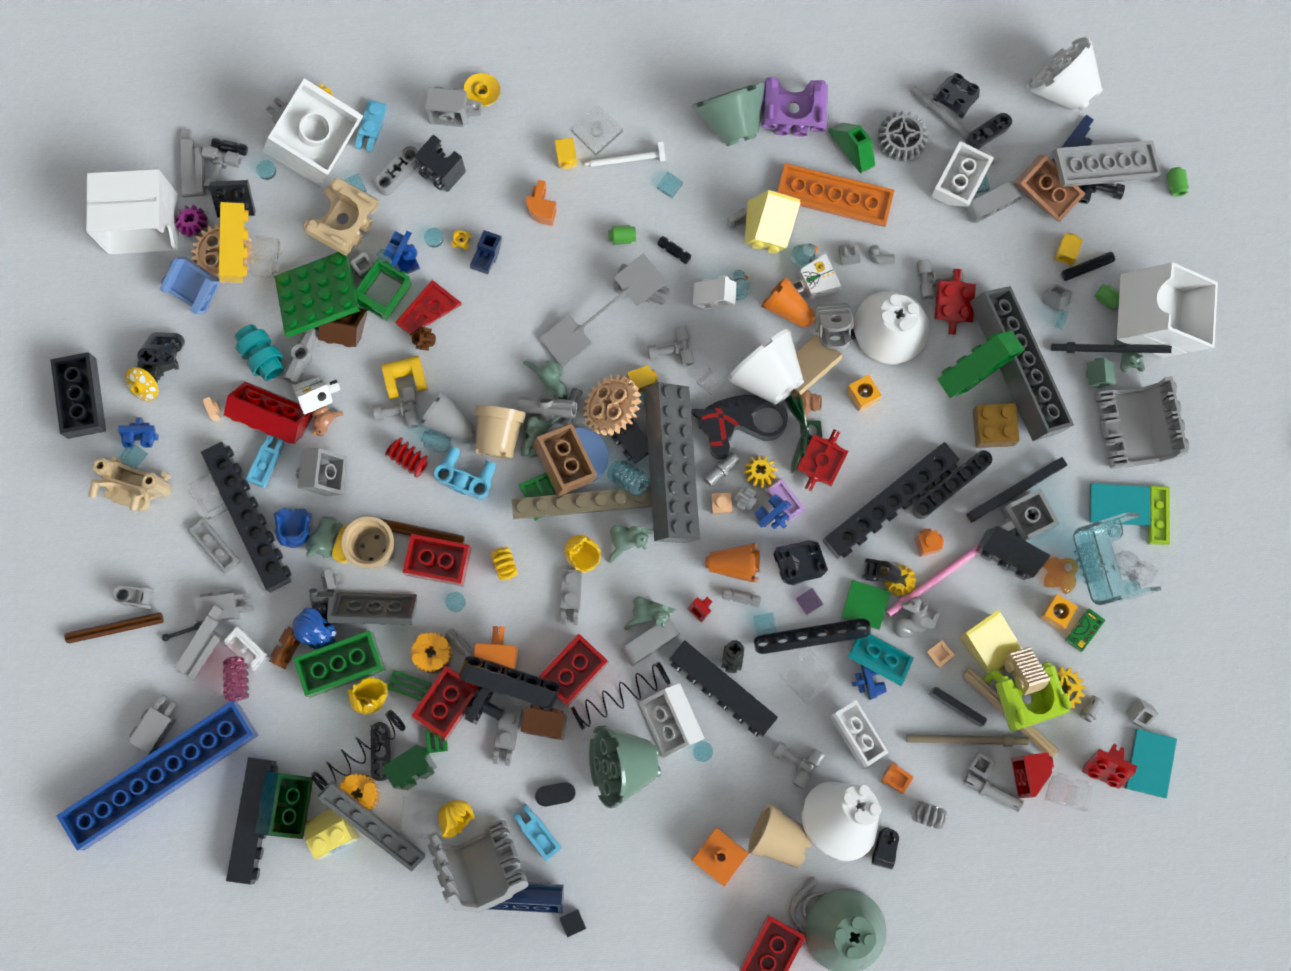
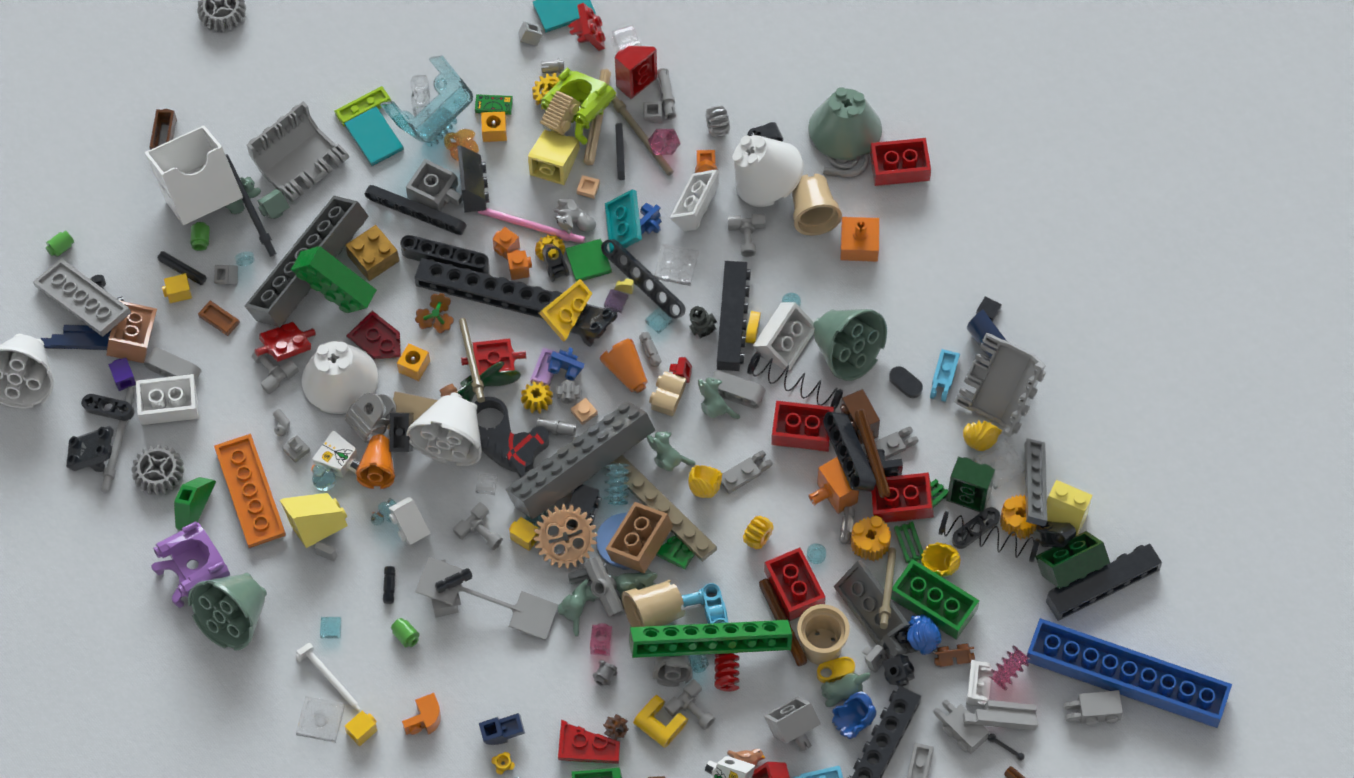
camera: 125 degrees left, 15 degrees down
(299, 588) = (898, 670): none -> black brick
(312, 811) = (1056, 534): none -> black piece
(343, 602) = (885, 610): none -> dark tan bar
(422, 457) = (710, 638): none -> green brick
(475, 361) = (604, 673): none -> flat silver brick
(492, 699) = (872, 453): none -> reddish brown axle
(502, 370) = (601, 647): none -> clear pink brick
(631, 287) = (453, 580): none -> black axle
(686, 581) = (668, 393): none -> tan brick
(699, 698) = (753, 326): none -> yellow beam
(797, 419) = (477, 384): none -> dark tan bar
(805, 338) = (398, 428): none -> black brick
(817, 617) = (625, 286): none -> light yellow tile
(823, 545) = (566, 308): none -> yellow wing
(896, 434) = (442, 322): none -> dark orange plant
(900, 540) = (519, 264): none -> orange brick
(910, 380) = (376, 337): none -> dark red tile
(942, 744) = (664, 141): none -> clear pink brick
(1013, 159) = (122, 374): none -> dark purple brick
(1018, 267) = (218, 318): none -> dark orange tile
(1244, 324) = (163, 117): none -> reddish brown window

